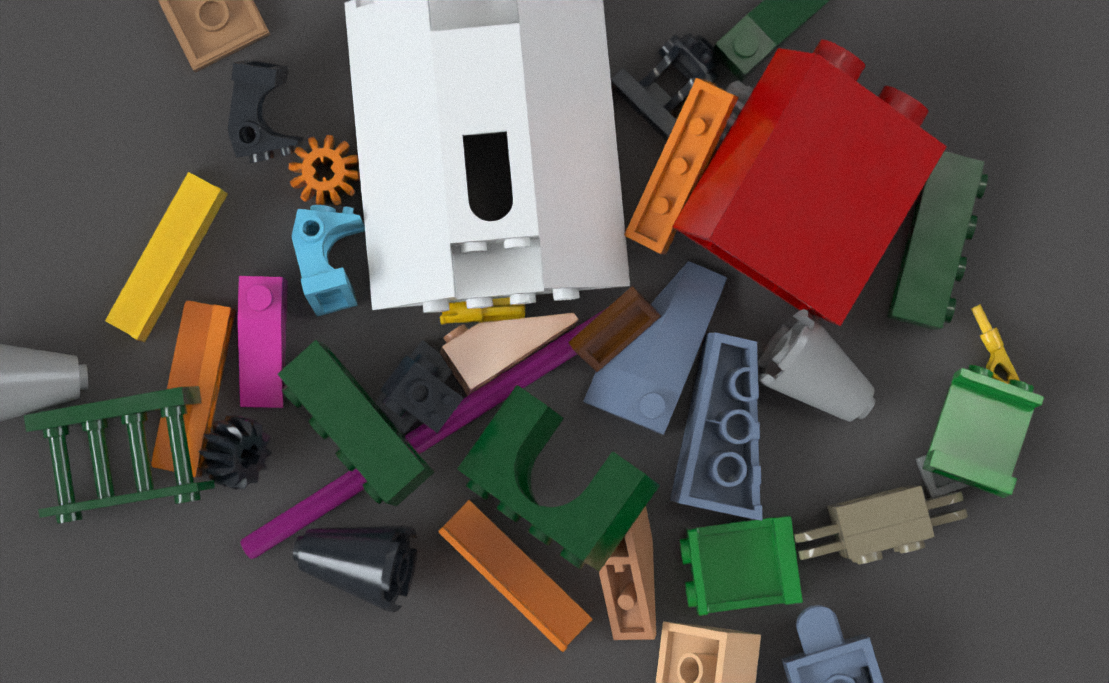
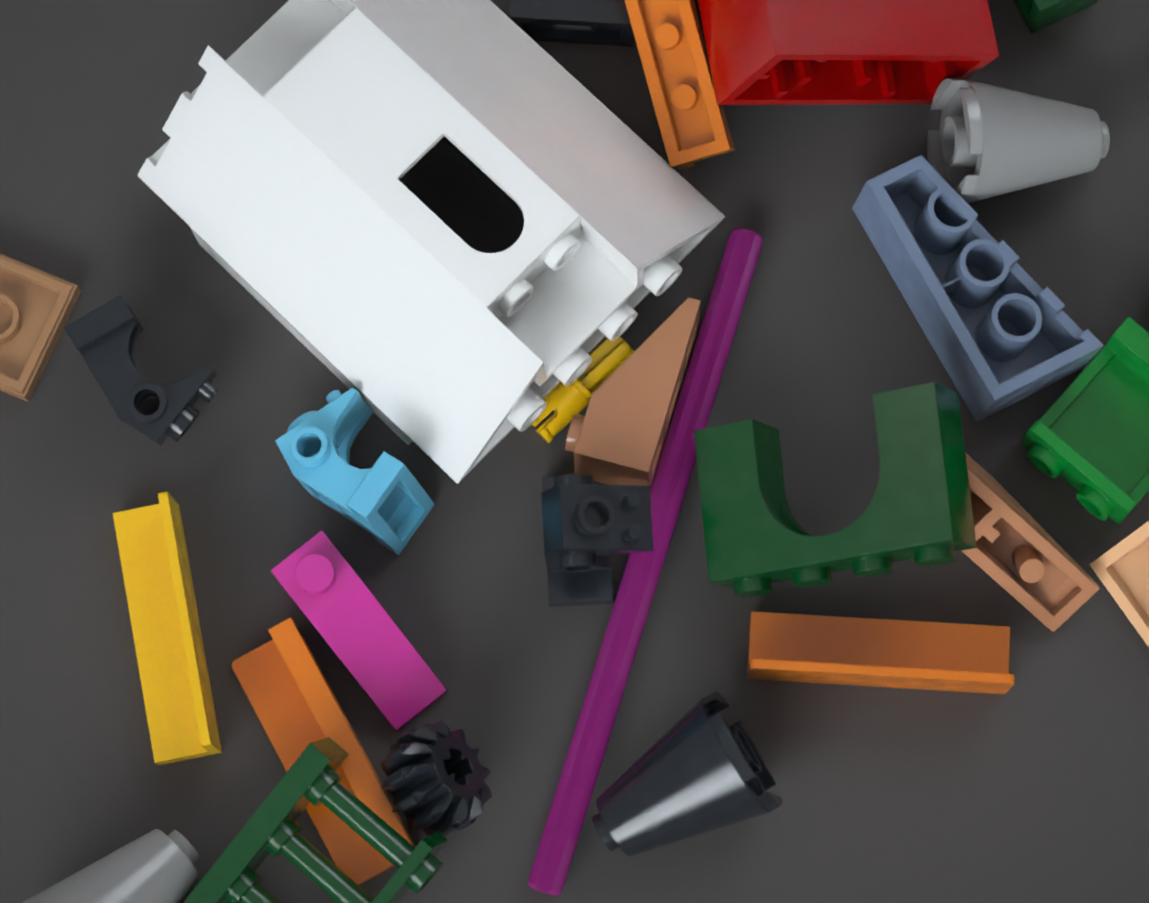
camera: 35 degrees left, 10 degrees down
(310, 175) = (247, 394): orange gear -> none
(355, 424) = (548, 628): dark green brick -> none
(614, 329) = (748, 281): reddish brown tile -> none
(651, 371) = (821, 282): sand blue wedge -> none

